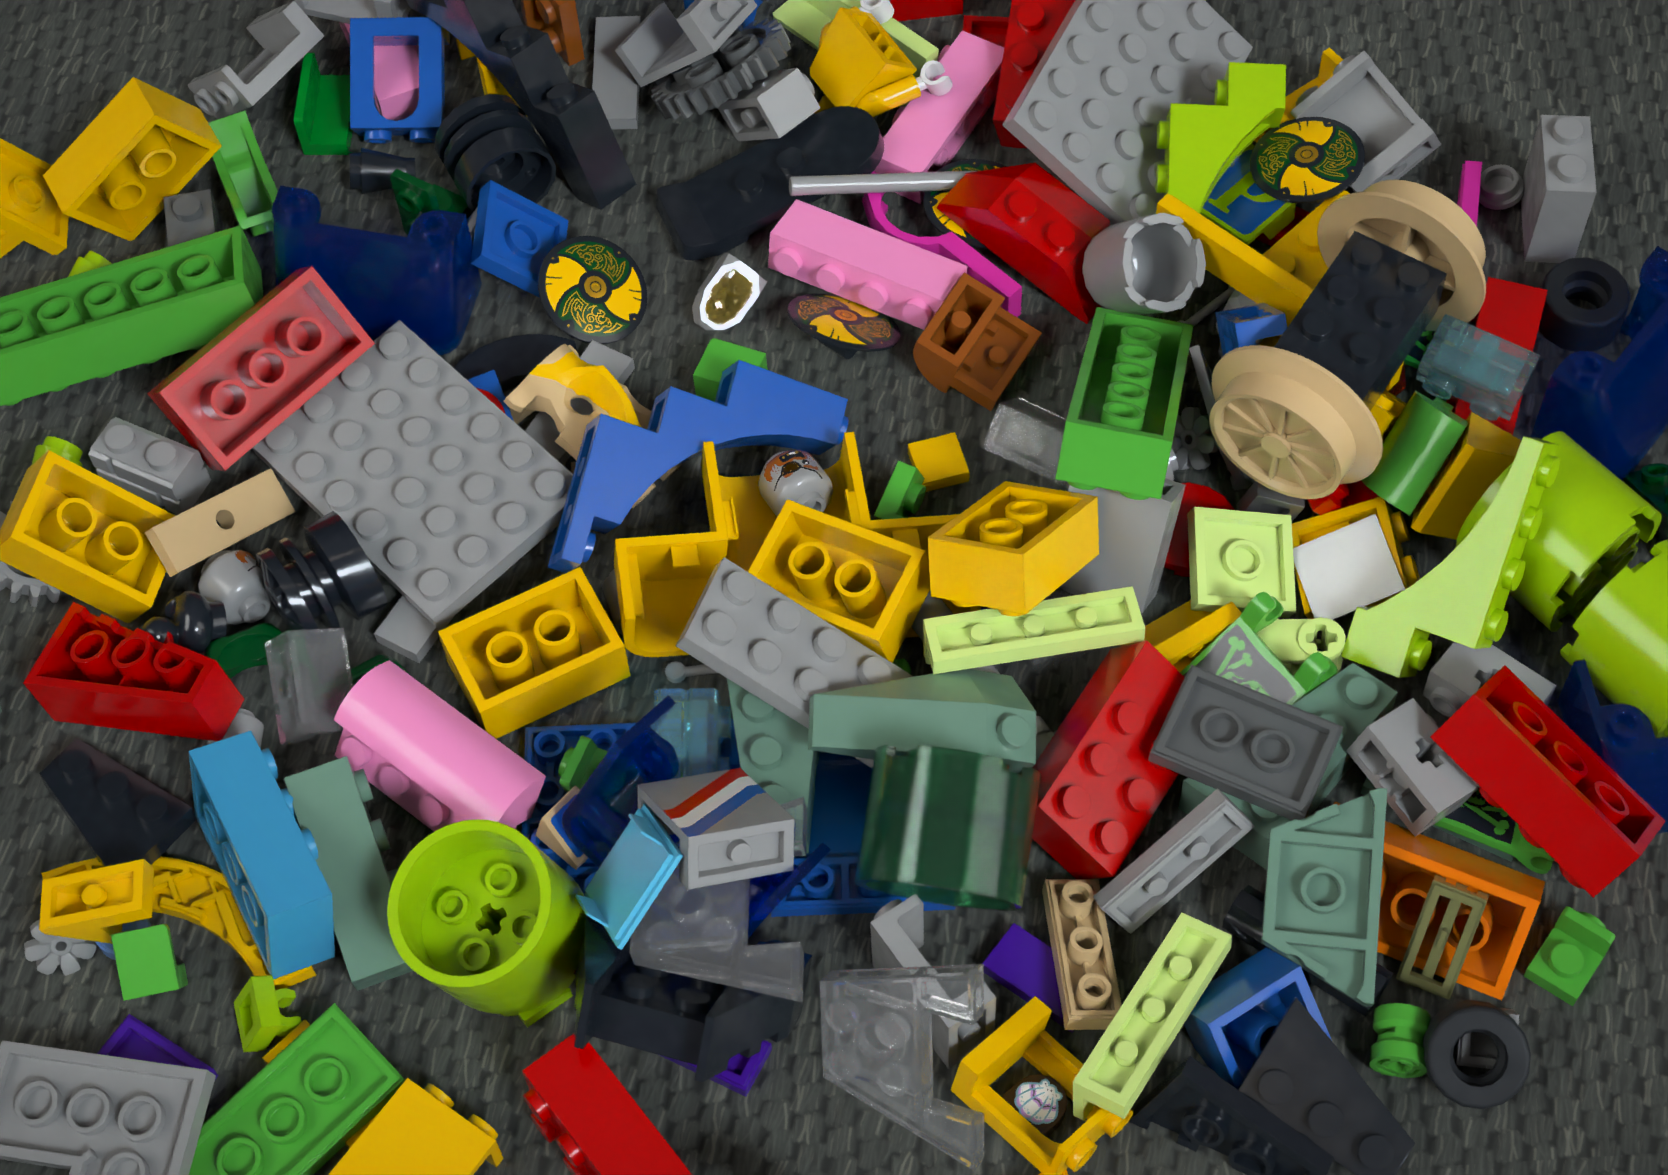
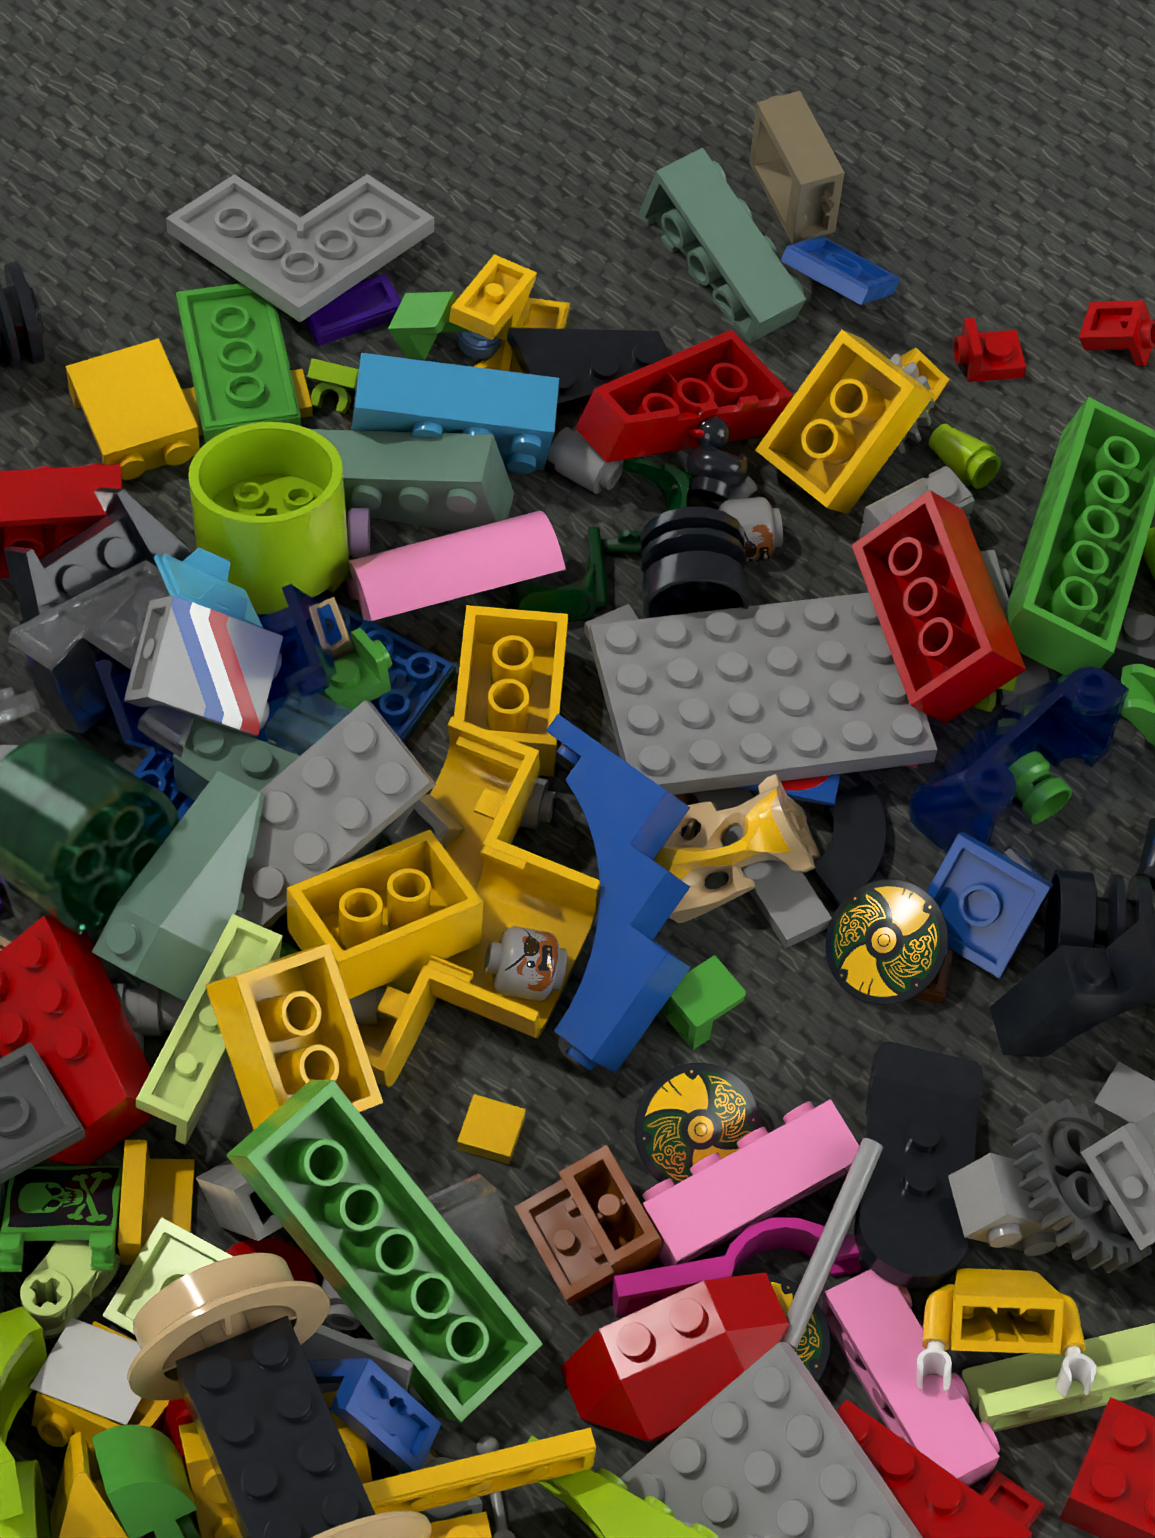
camera: 115 degrees right, 0 degrees up
(239, 510) = (799, 503): tan tile -> none
(308, 681) = (599, 528): clear panel -> none
(419, 197) = (1072, 839): dark green bracket -> none
(726, 294) = (807, 1056): rock -> none
(902, 493) = (451, 1049): bright green bracket -> none
(1144, 265) = (538, 1384): light grey cylinder -> none

